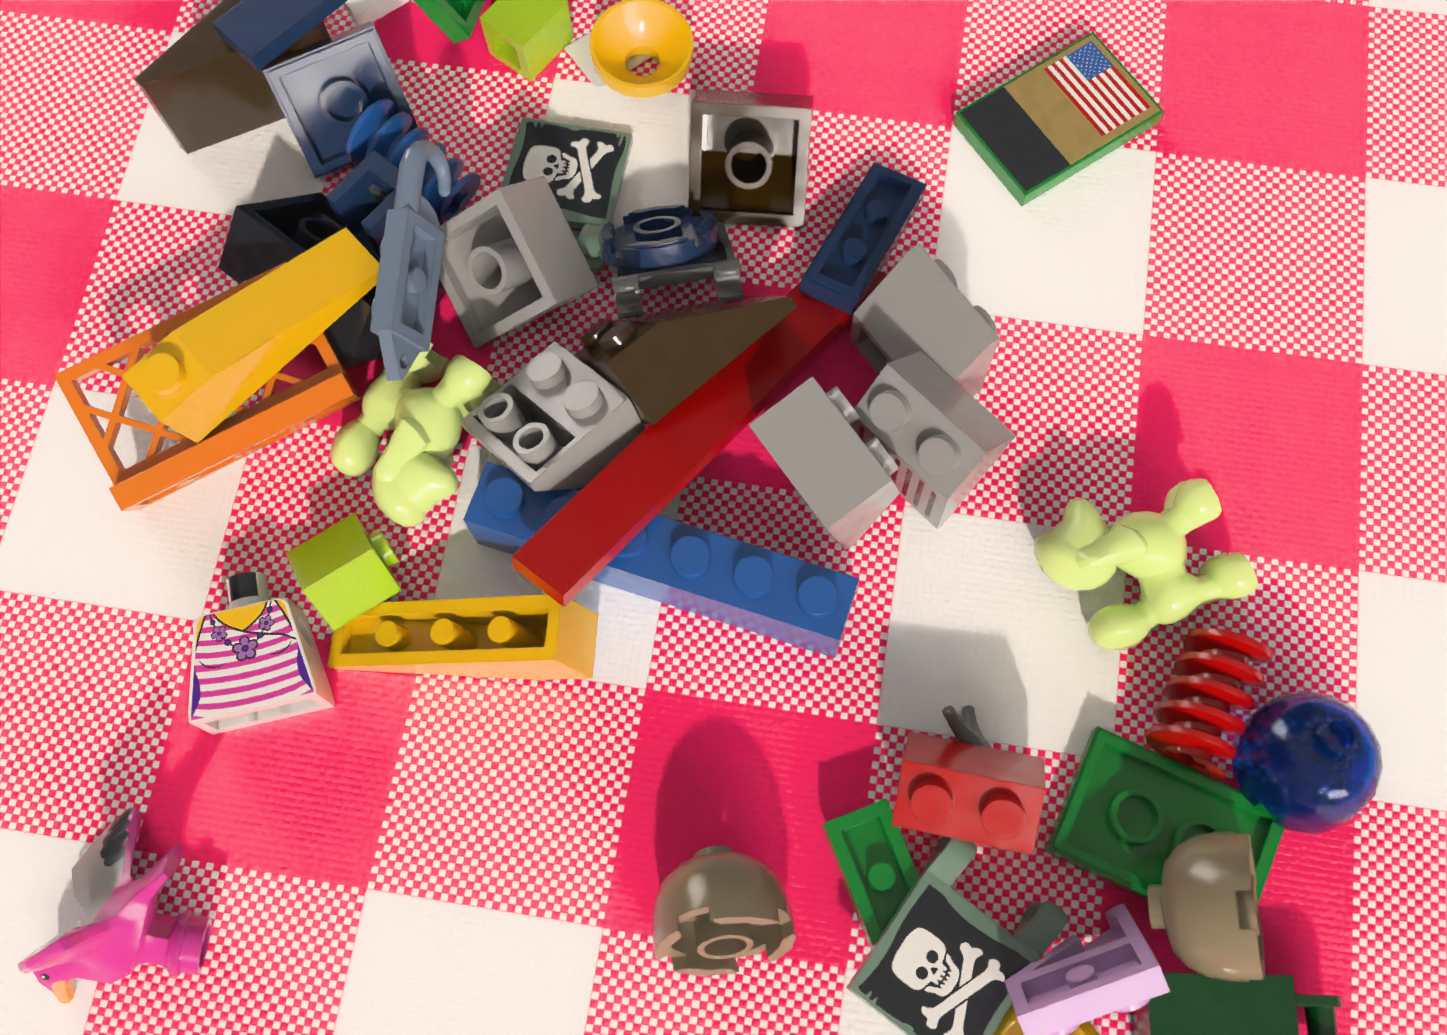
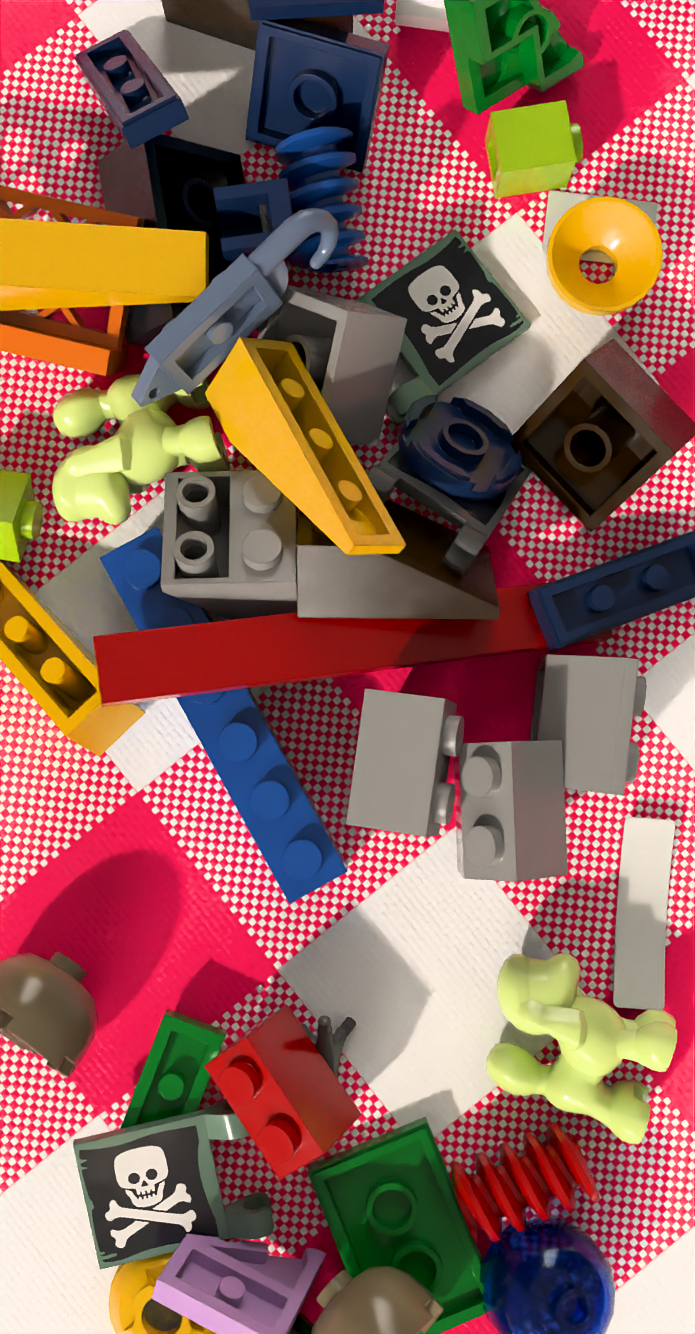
camera: 40 degrees right, 15 degrees up
(202, 195) = (131, 88): none -> dark blue tile
(514, 308) = (294, 440): none -> yellow slope
(1092, 441) = (642, 913): none -> white sticker

